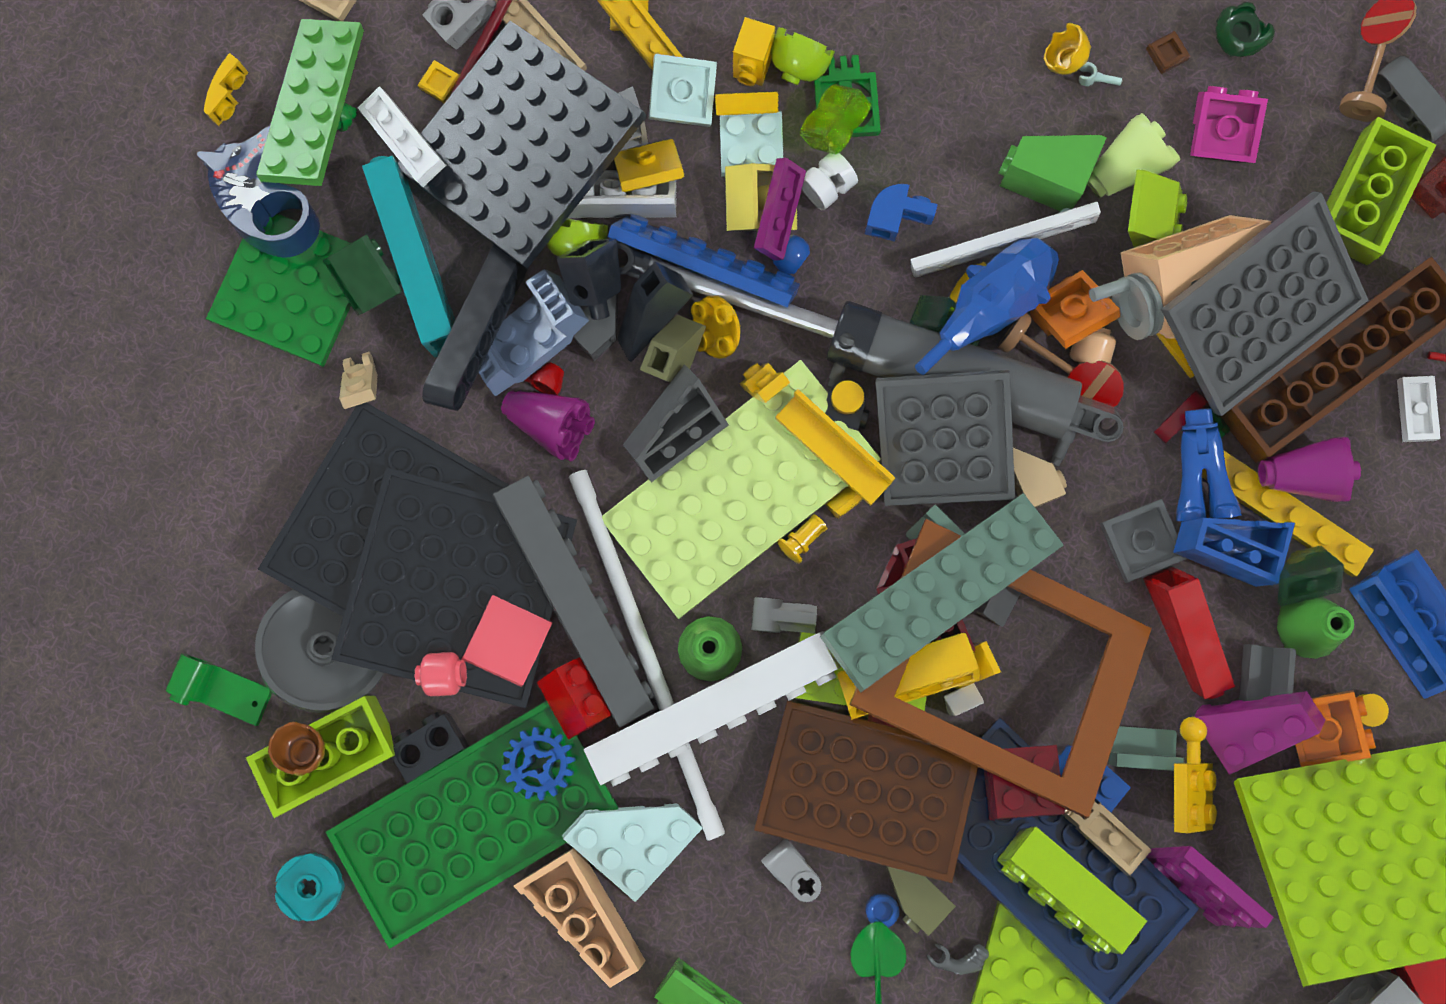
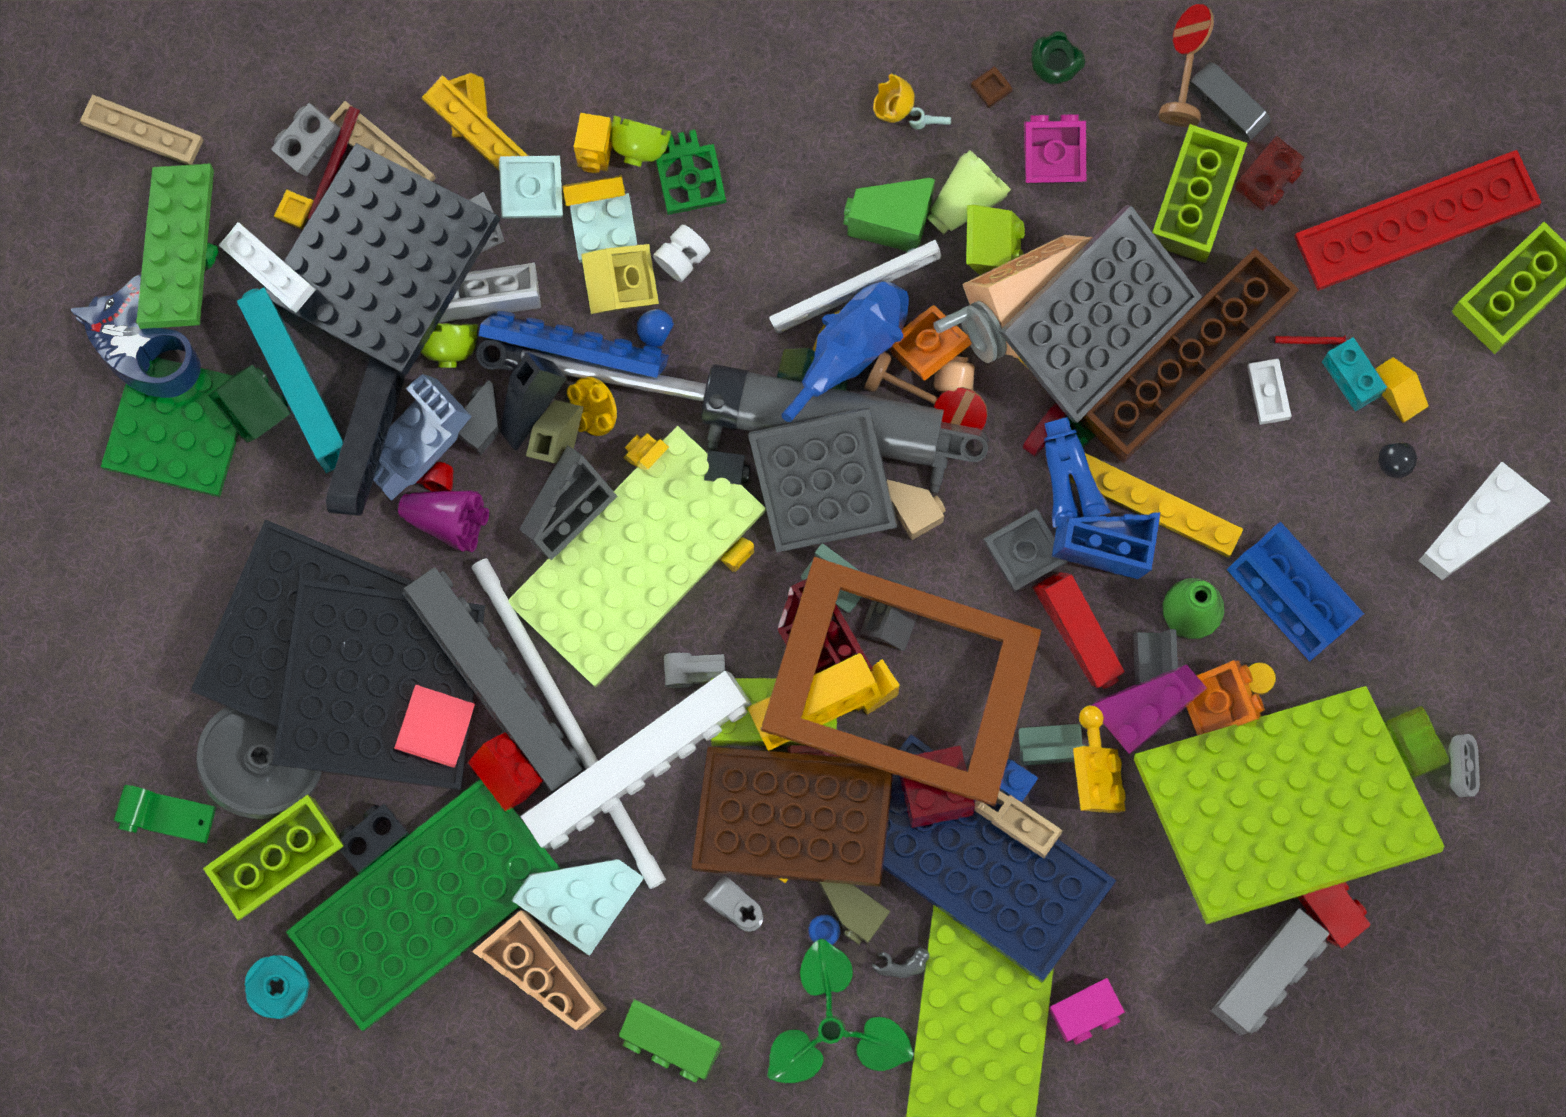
camera: 10 degrees left, 5 degrees down
(219, 102) = (85, 255): yellow slope -> none
(296, 748) = (252, 848): dark orange hair -> none
(358, 381) = (259, 504): tan hinge -> none
(441, 674) = (377, 763): coral head -> none
(546, 777) = (468, 845): blue gear -> none
(592, 275) = (469, 373): black torso -> none
(648, 165) = (508, 262): yellow plate -> none
(713, 665) = (626, 721): bright green cone -> none
(780, 209) = (638, 287): magenta plate -> none
(802, 538) = (701, 595): yellow pin -> none
(833, 122) = (679, 197): clear neon green brick -> none
(835, 448) = (720, 503): yellow panel -> none
(847, 397) = (726, 454): yellow tile -> none
(893, 205) = (745, 270): blue brick -> none
(940, 592) = (835, 619): sand green plate -> none
(963, 700) = (873, 721): white slope -> none
(1071, 891) = (987, 873): lime brick -> none
(1209, 888) = (1118, 856): magenta plate -> none
(1309, 575) = (1179, 560): clear green slope -> none
(1314, 471) = (1171, 462): magenta cone -> none

